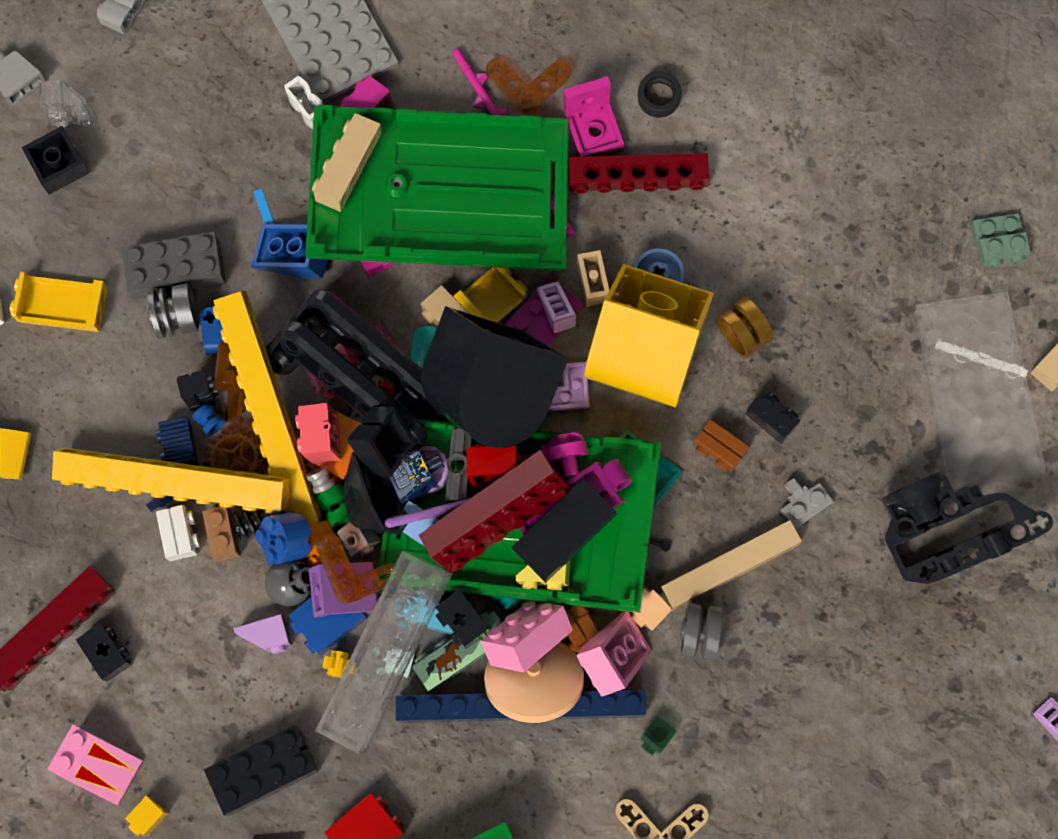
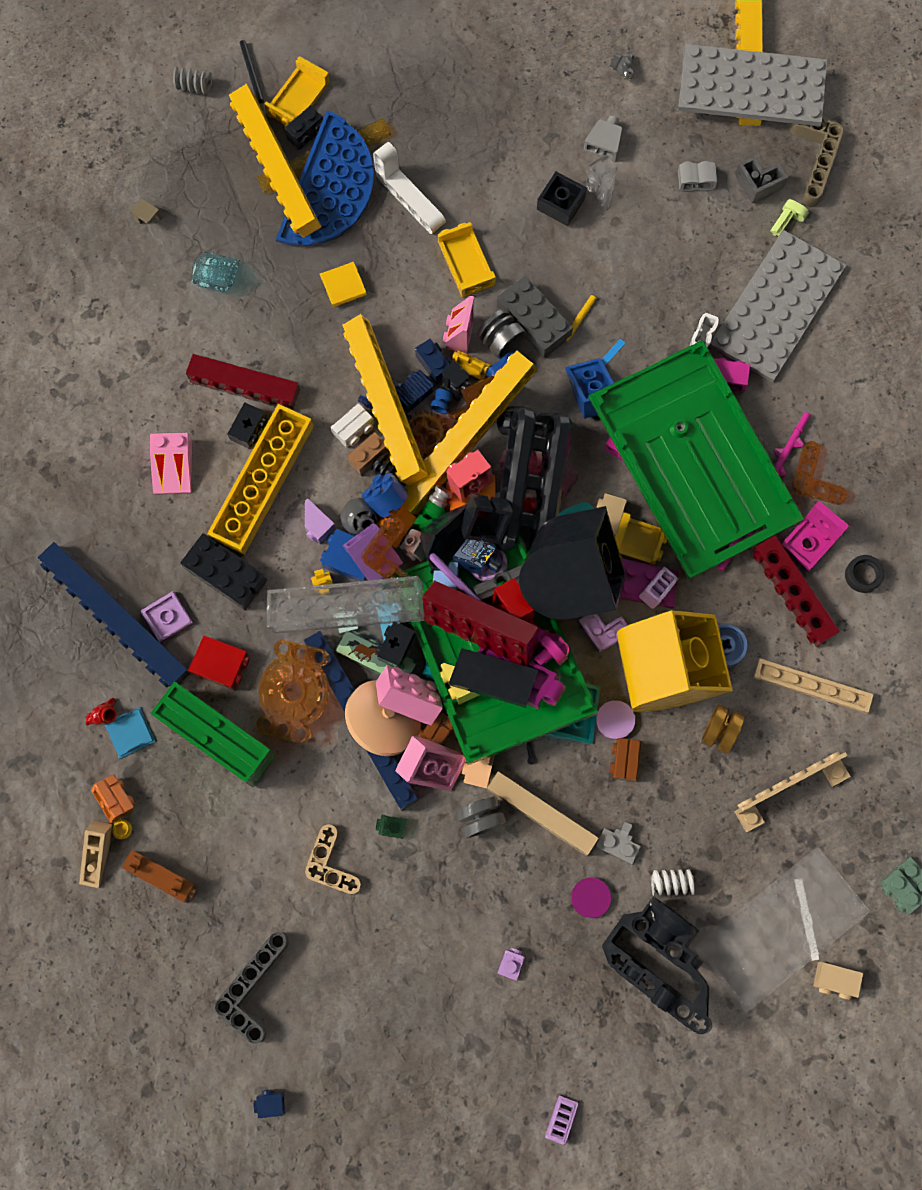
camera: 60 degrees right, 0 degrees up
(136, 350) = (460, 326): none -> bright pink slope
(146, 816) = (154, 515): yellow brick -> none
(156, 402) = (432, 360): none -> dark blue brick
(178, 670) = (261, 479): none -> yellow brick
(187, 363) = (471, 365): none -> yellow hinge
(199, 212) = (575, 324): none -> yellow bar
(347, 162) = (673, 383): tan brick -> none
(440, 788) = (273, 691): none -> clear orange piece
(593, 277) = (697, 599): tan brick -> none
(673, 431) = (615, 720): none -> lavender tile
(747, 213) = (813, 686): none -> tan plate
(772, 416) = (669, 785): black brick -> none
(842, 244) = (832, 768): none -> tan bracket
(845, 565) = (591, 897): none -> magenta tile
(872, 687) = (511, 964): none -> lavender bracket
(873, 470) = (672, 882): none -> white piece

